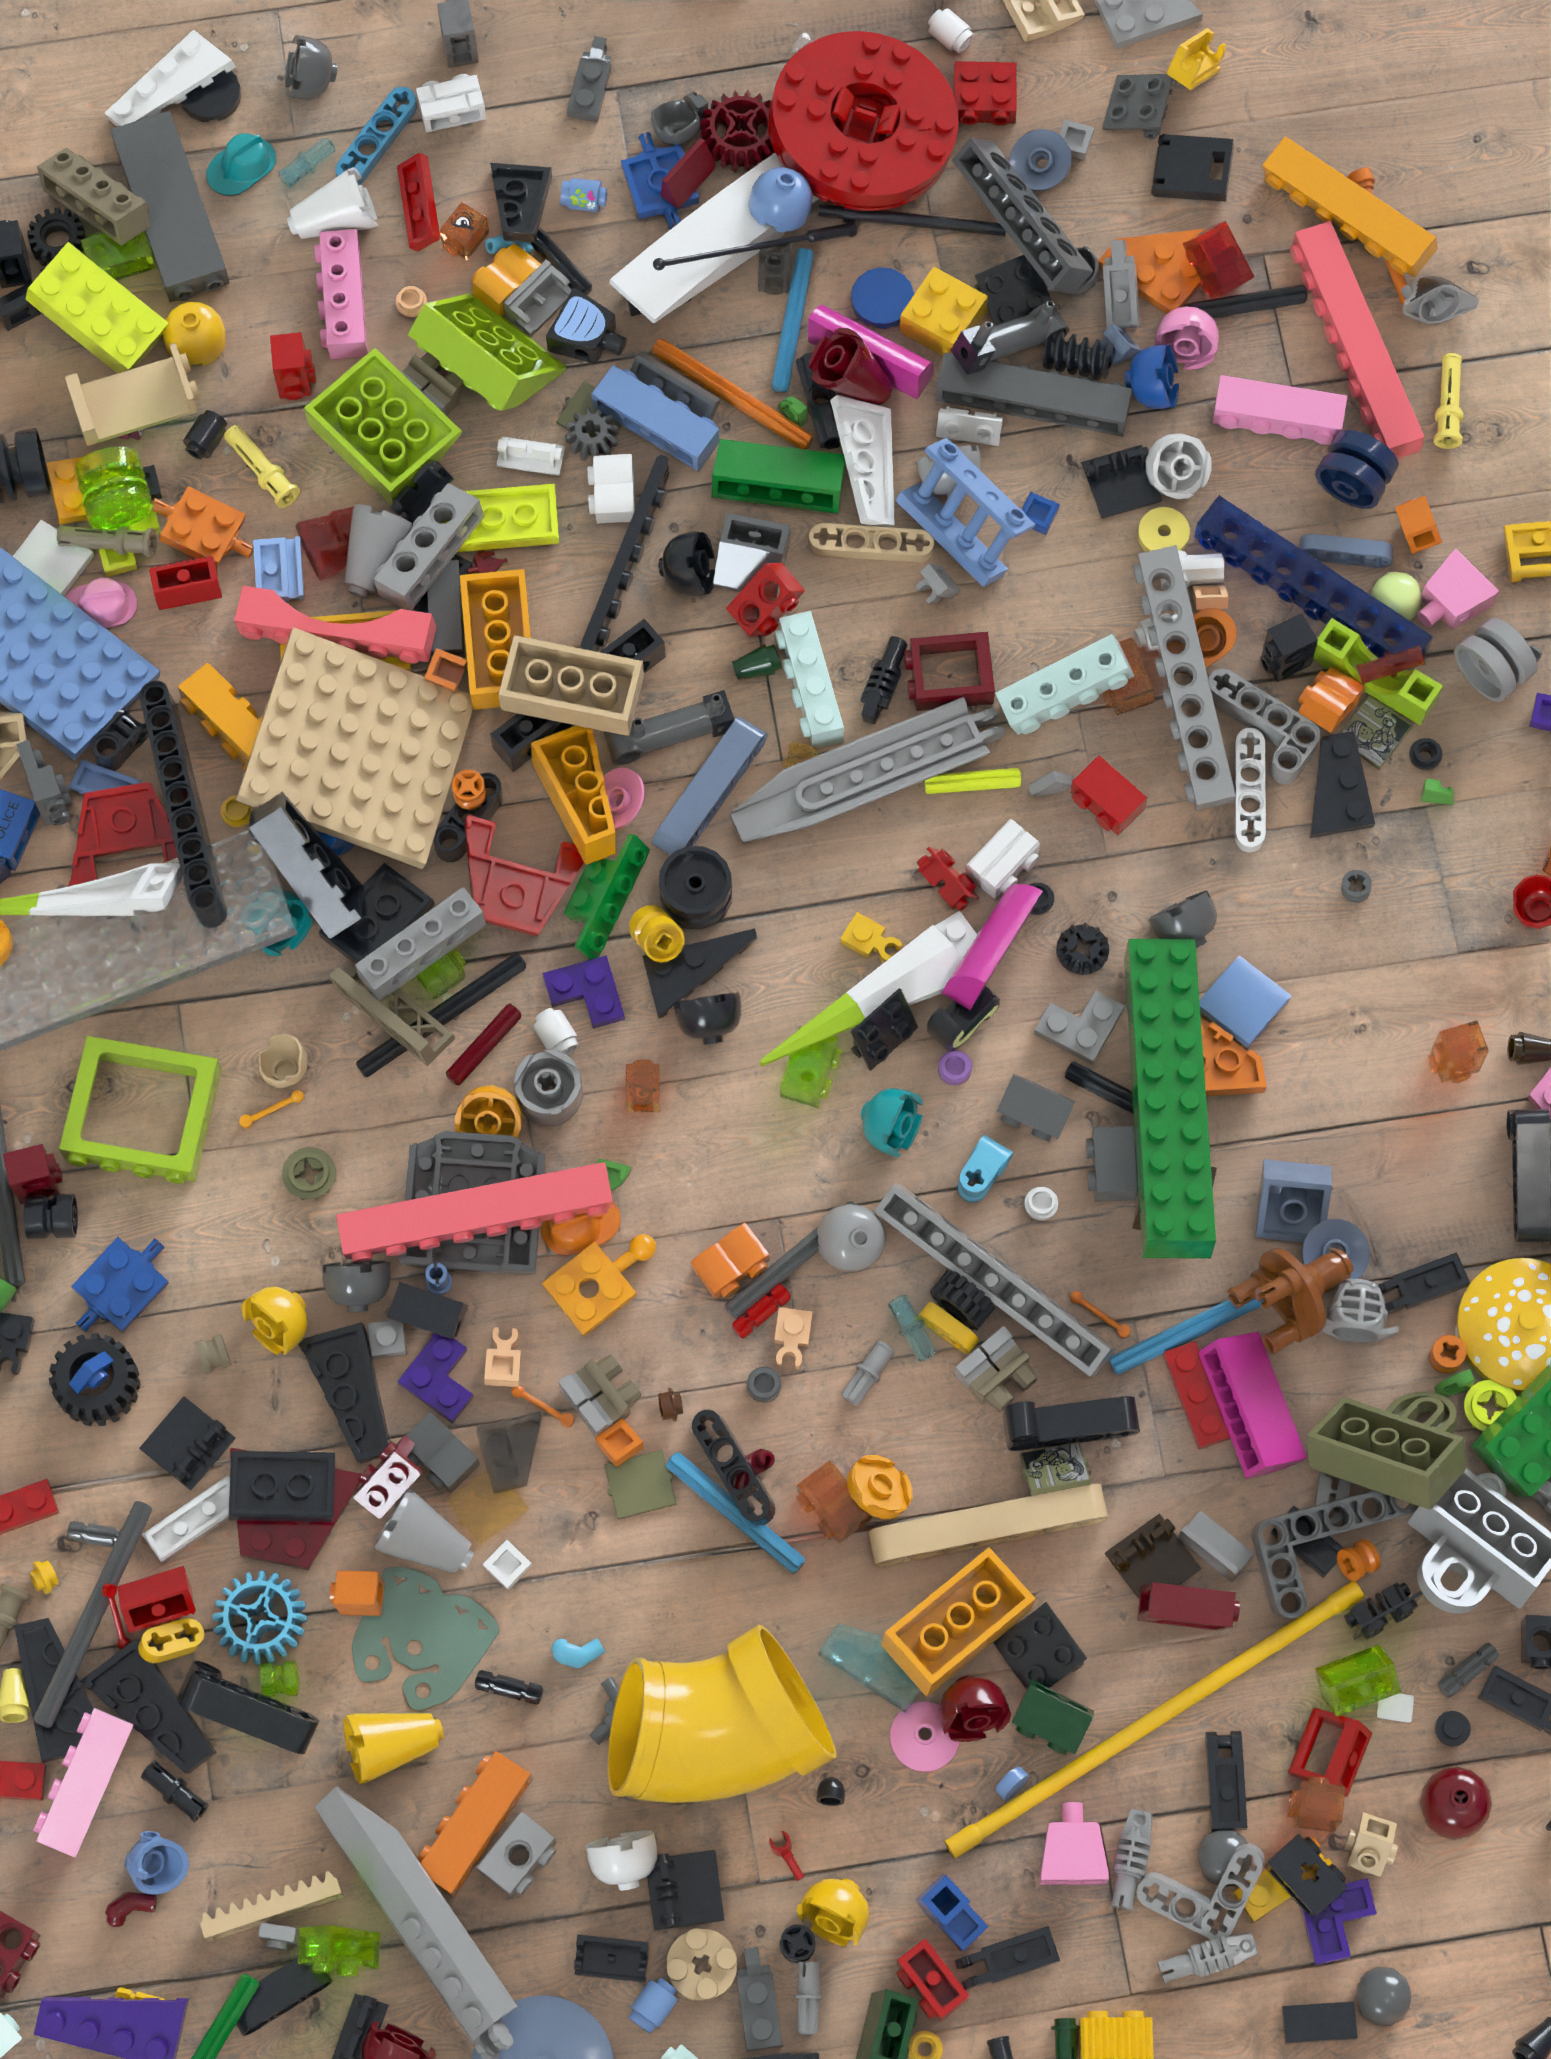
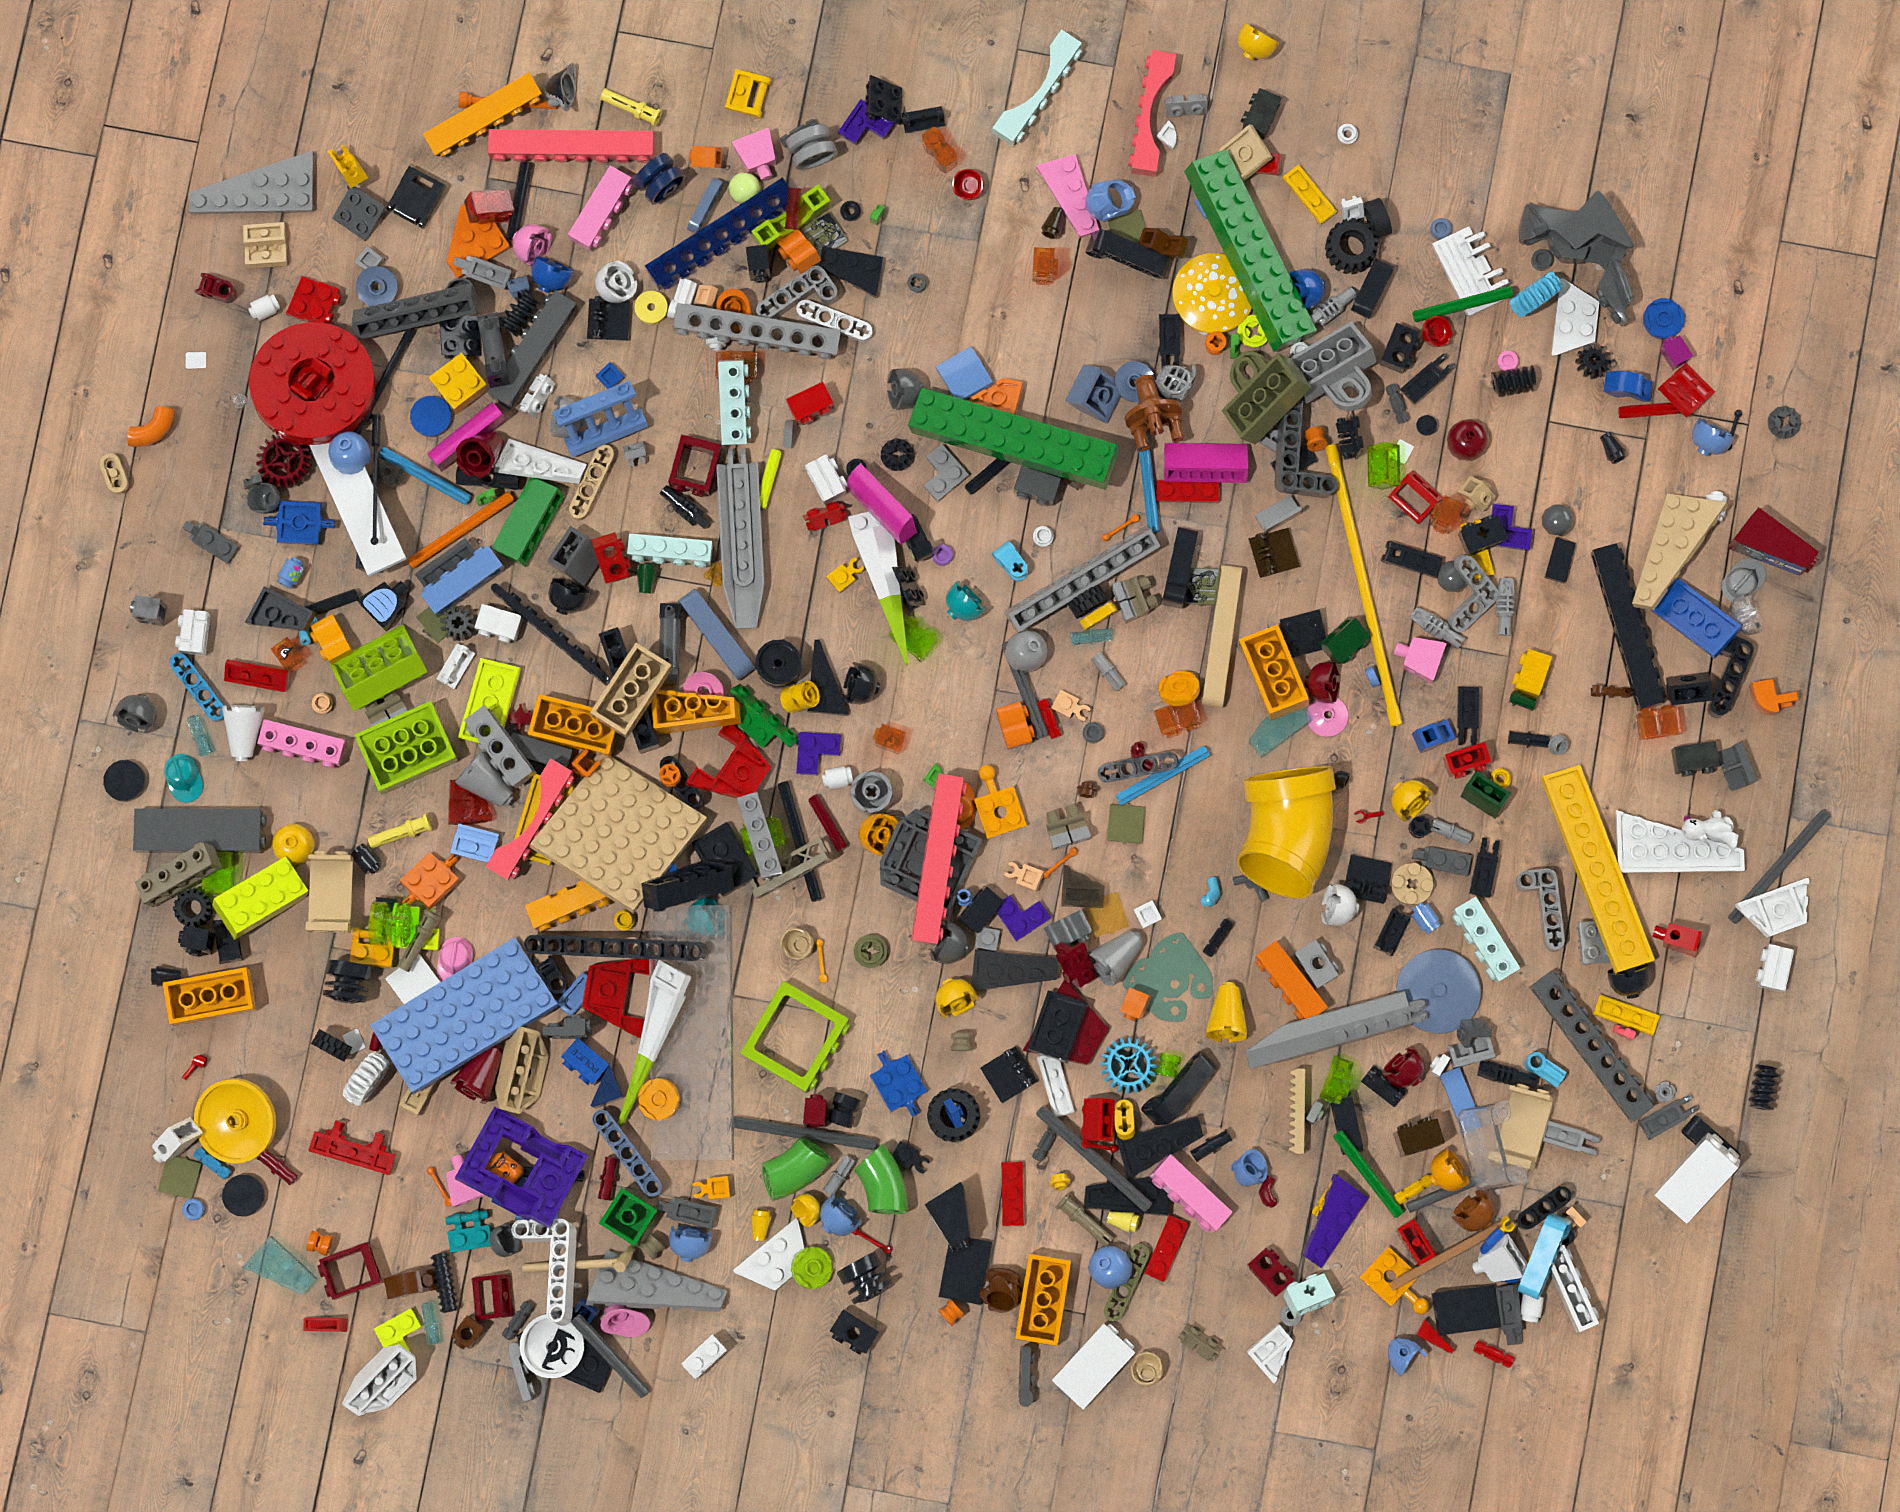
camera: 70 degrees left, 10 degrees up
(179, 72) = (107, 796): white wing -> none
(185, 582) = (465, 902): red brick -> none
(292, 365) = (344, 790): red brick -> none
(415, 501) = (459, 738): black hinge -> none
(537, 298) = (351, 625): light grey hinge -> none
(619, 1442) = (1099, 826): orange plate -> none
(688, 174) = (306, 503): dark red slope -> none
(1035, 1107) = (986, 517): dark grey brick -> none
(1187, 1606) = (1311, 542): dark red window -> none

